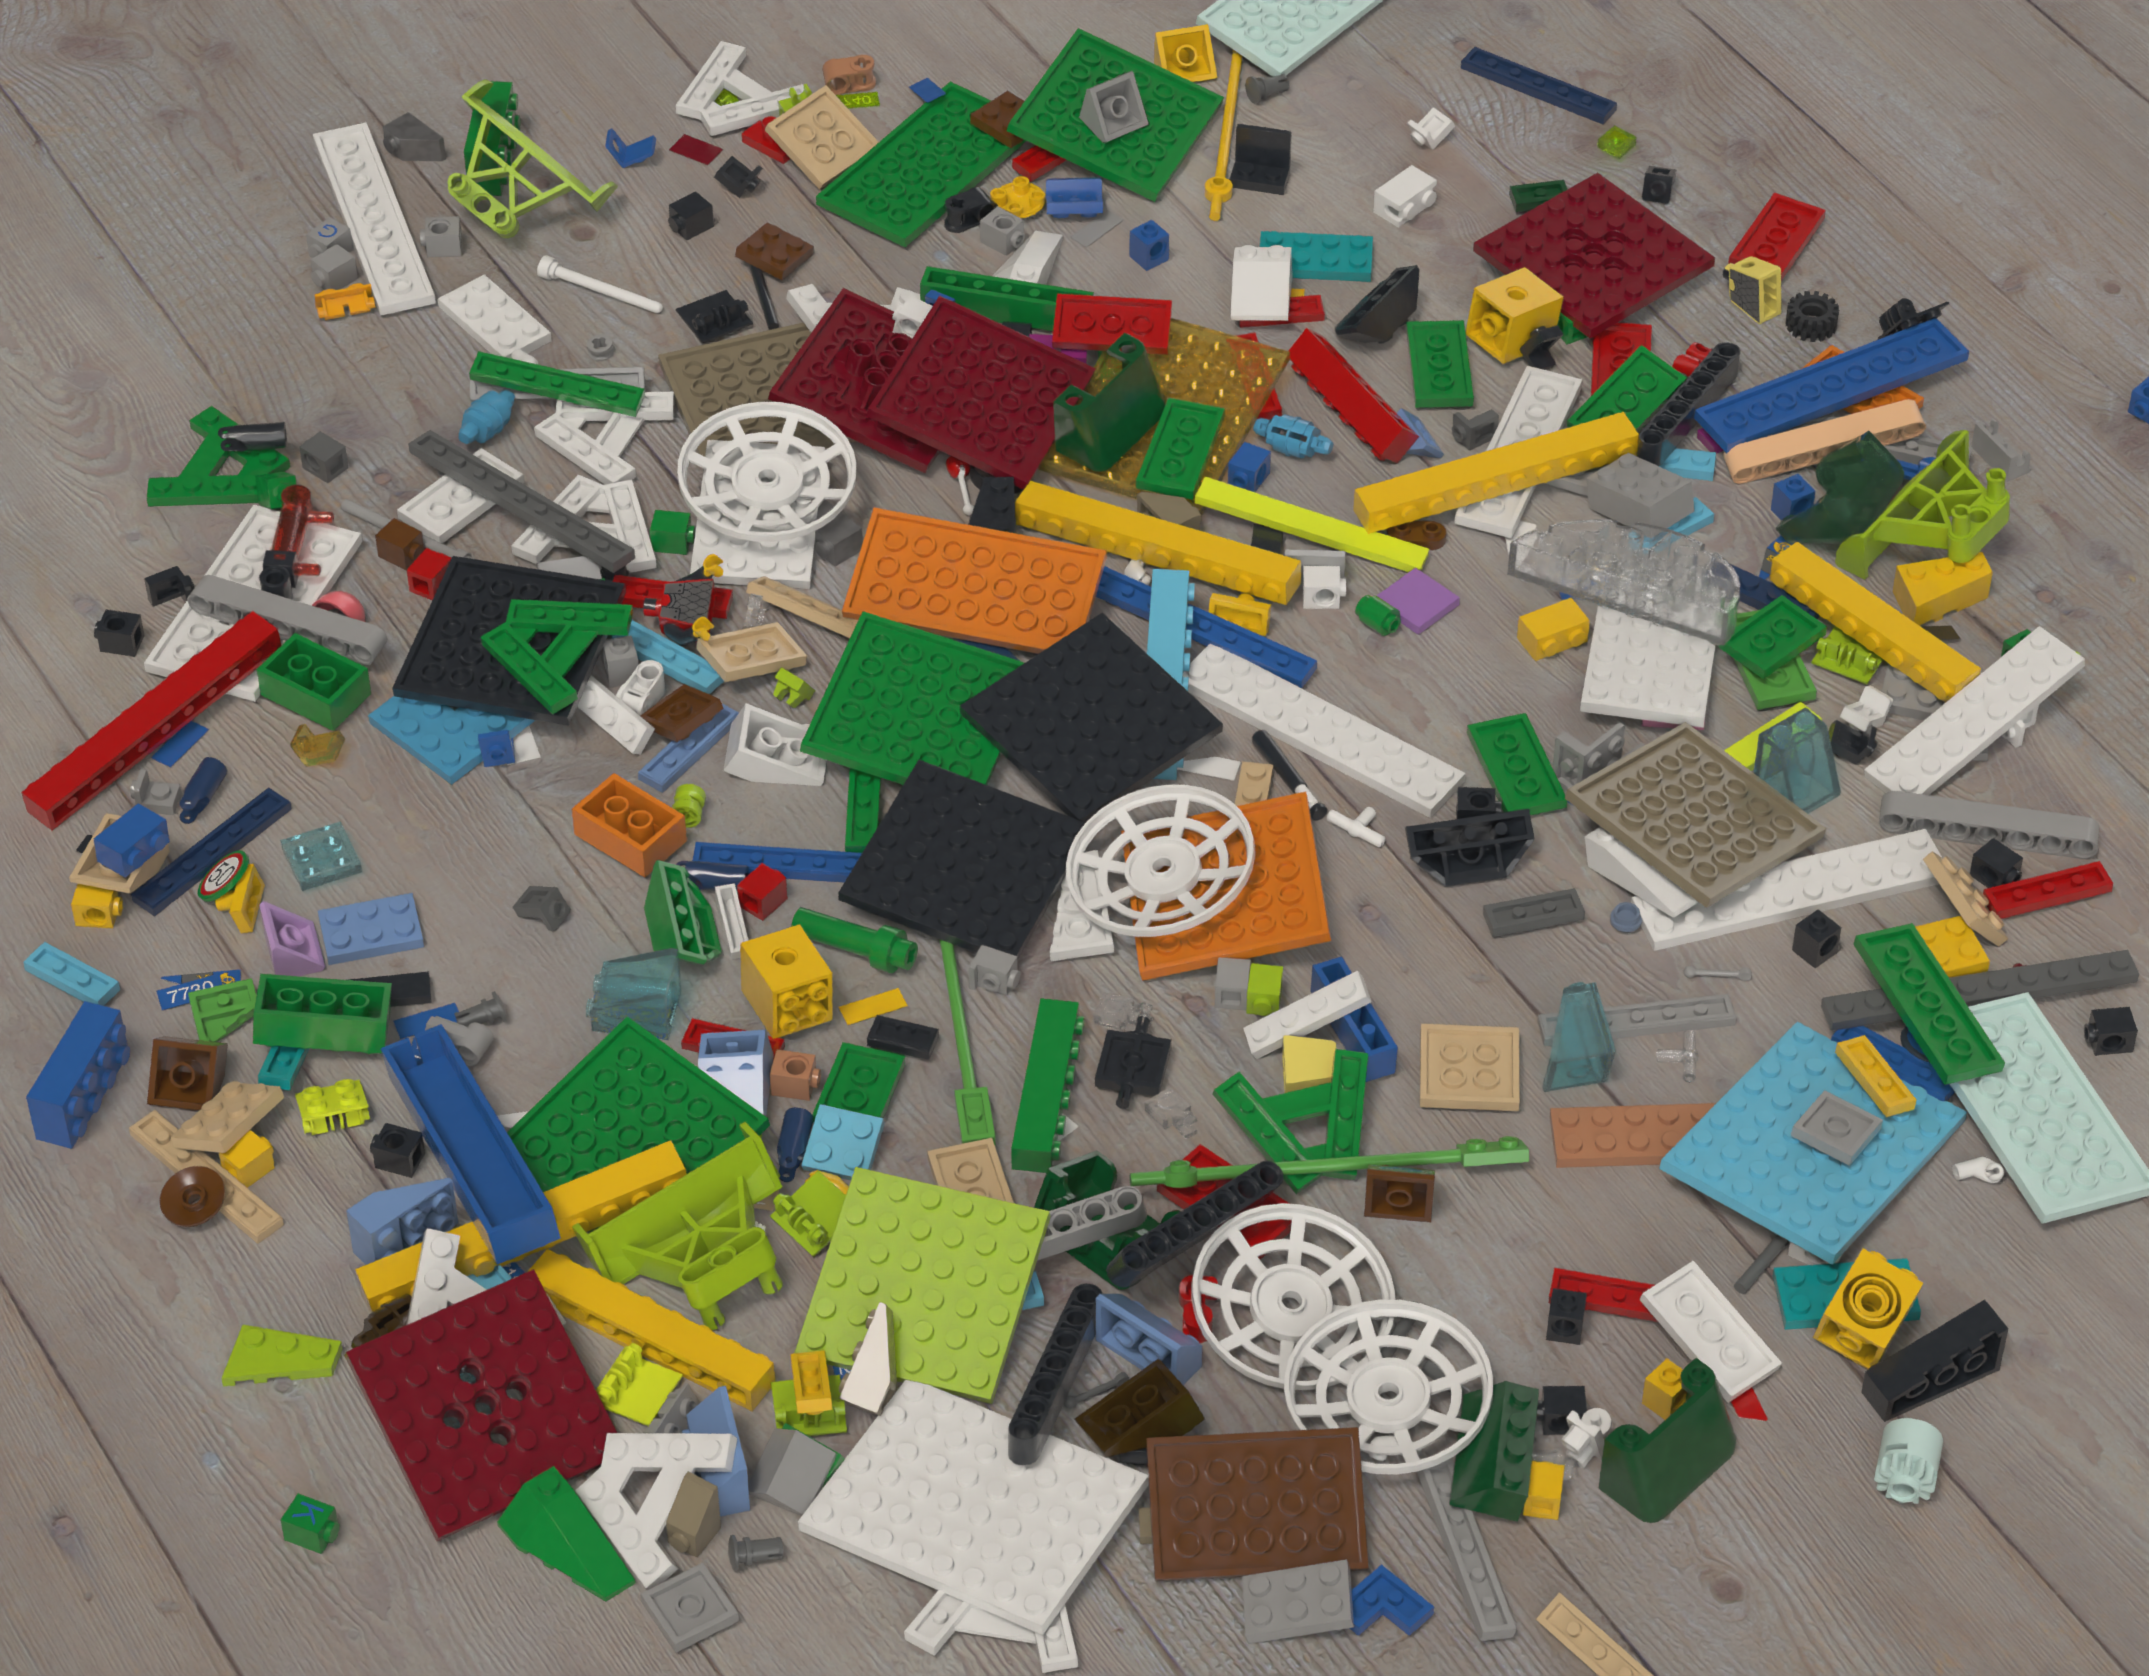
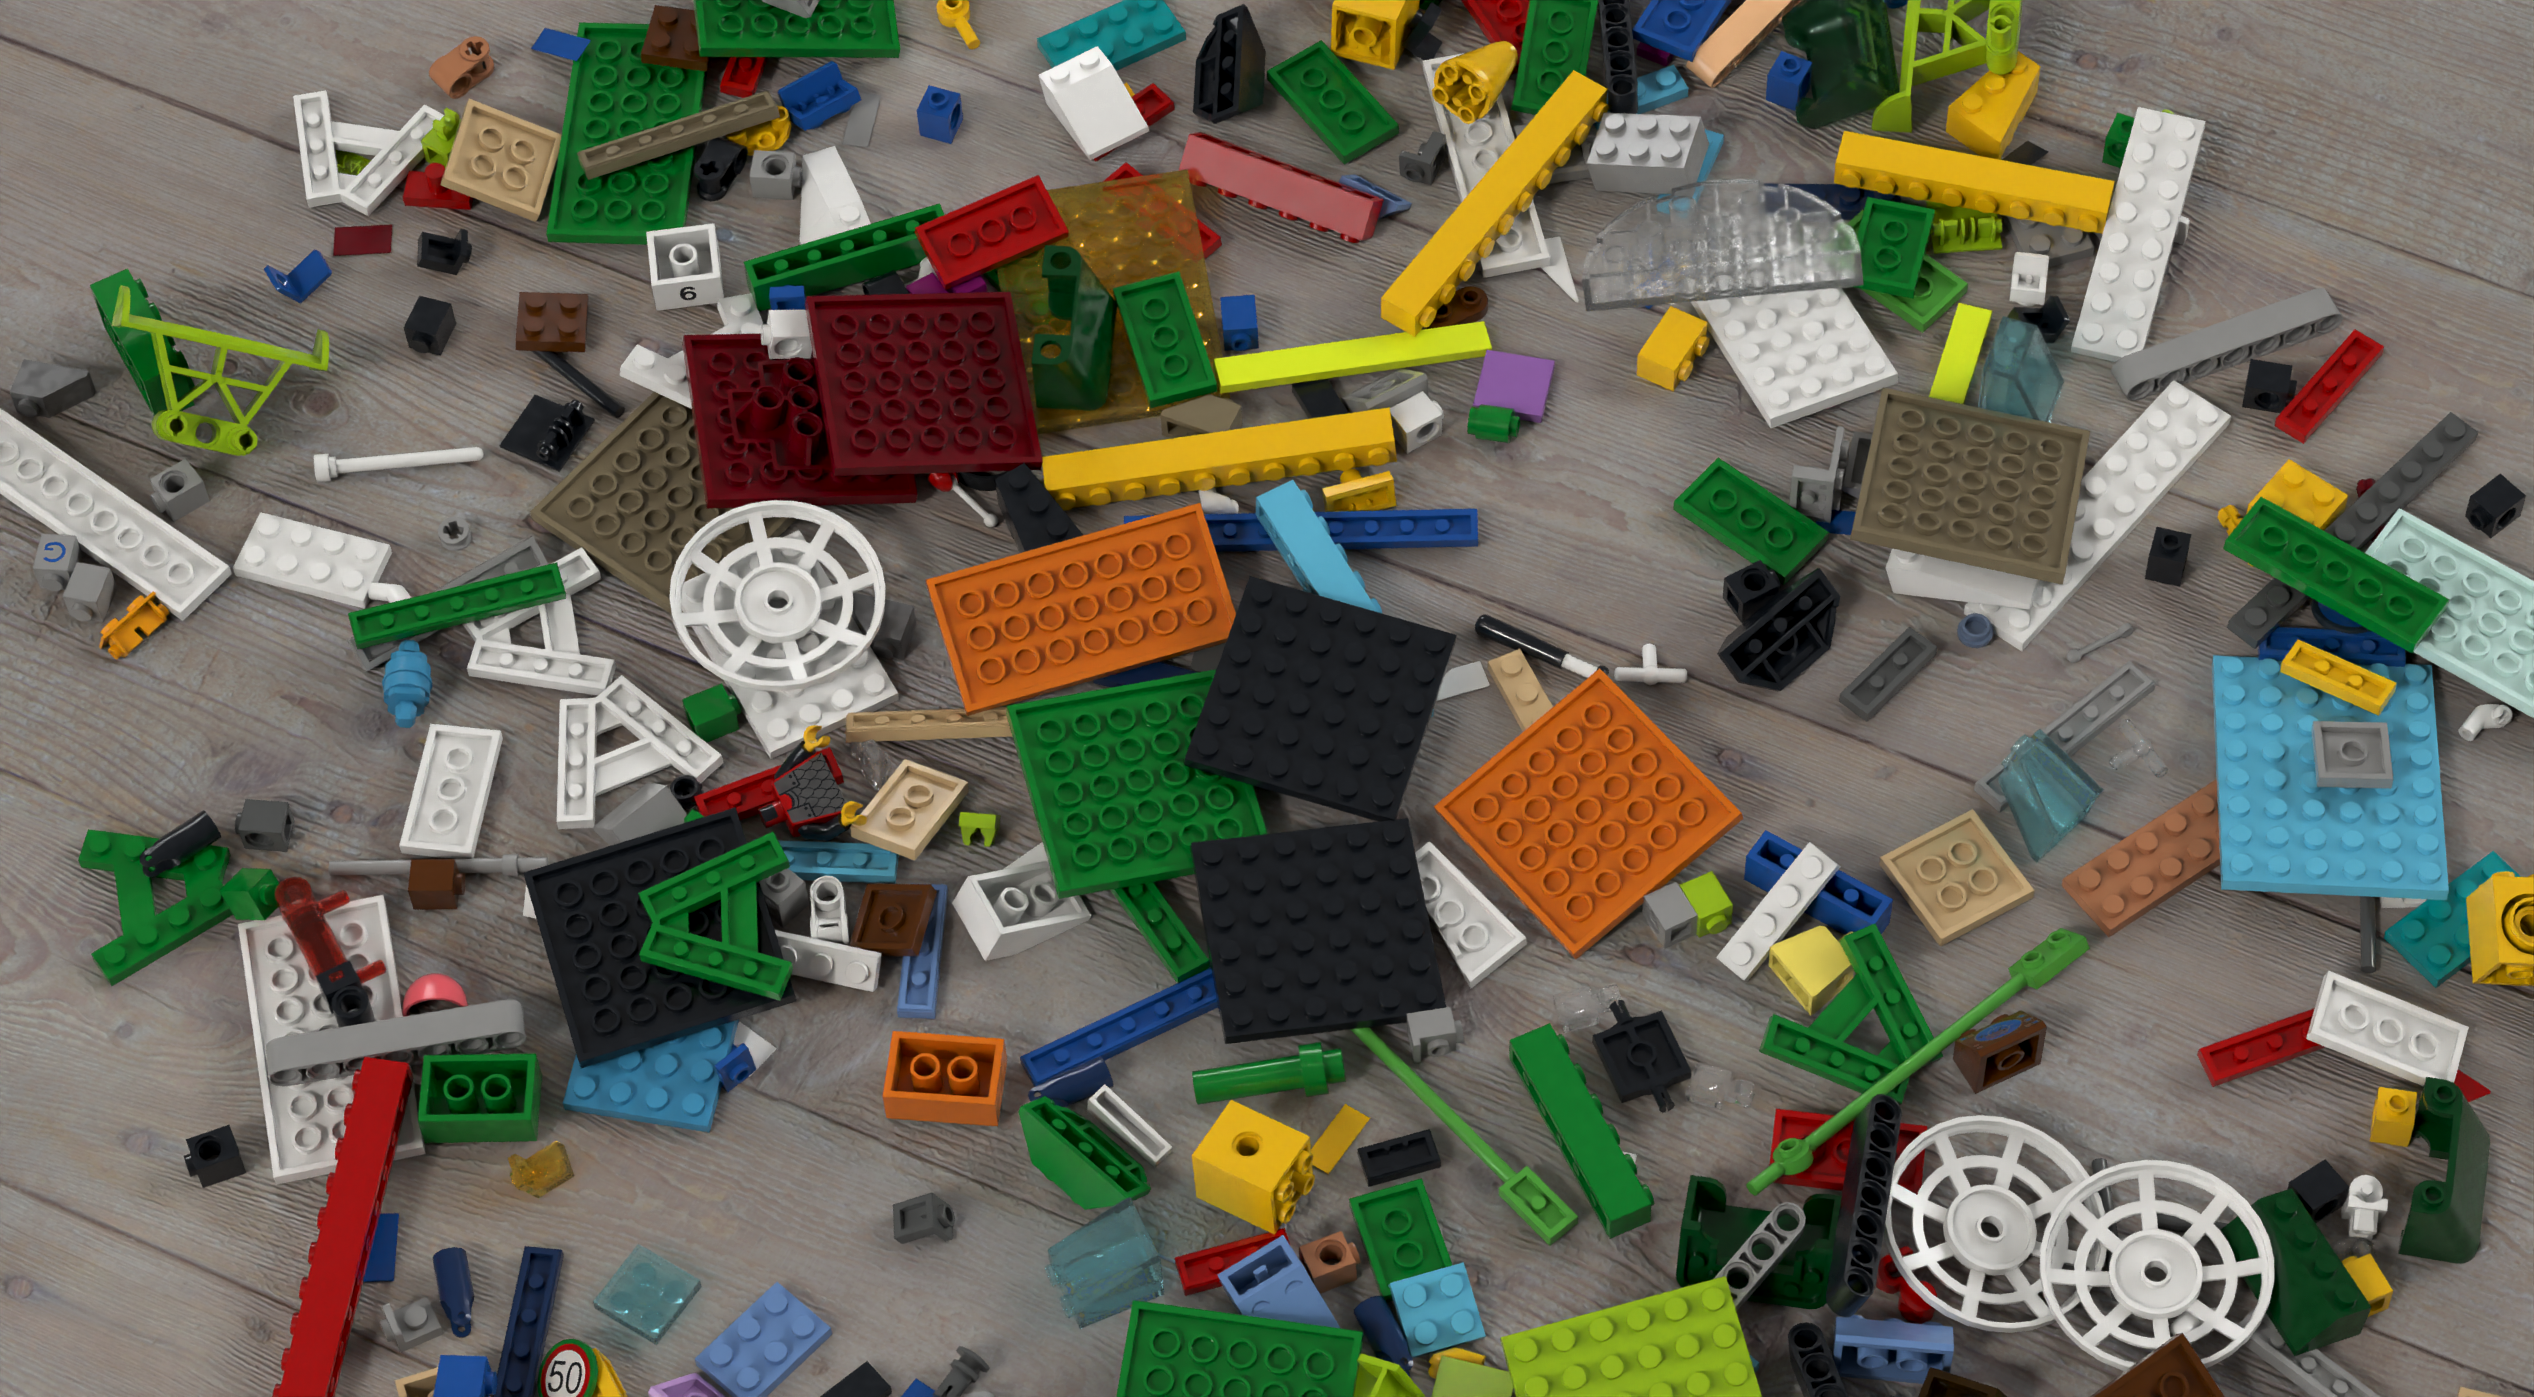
camera: 30 degrees left, 10 degrees up
(168, 586) = (222, 1068): black bracket -> none
(427, 573) = (496, 901): red brick -> none
(522, 501) = (536, 766): dark grey plate -> none
(689, 801) = (979, 1017): lime wheel -> none
(762, 891) = (1135, 1075): red brick -> none
(860, 99) = (486, 93): clear neon green sticker -> none
(889, 255) = (685, 266): none -> white brick
(955, 174) = (678, 134): none -> dark tan tile
(970, 1169) = (1588, 1273): tan plate -> none
(1158, 852) = (1510, 807): white dish -> none
(1295, 429) = (1259, 274): dark azure piece -> none
(1323, 730) = (1535, 582): white plate -> none
(1547, 387) = (1474, 80): none -> yellow cone
(1566, 1316) = (2247, 1093): black brick -> none
(1772, 550) = (1810, 148): sticker -> none
(1967, 900) = (2273, 437): tan plate -> none

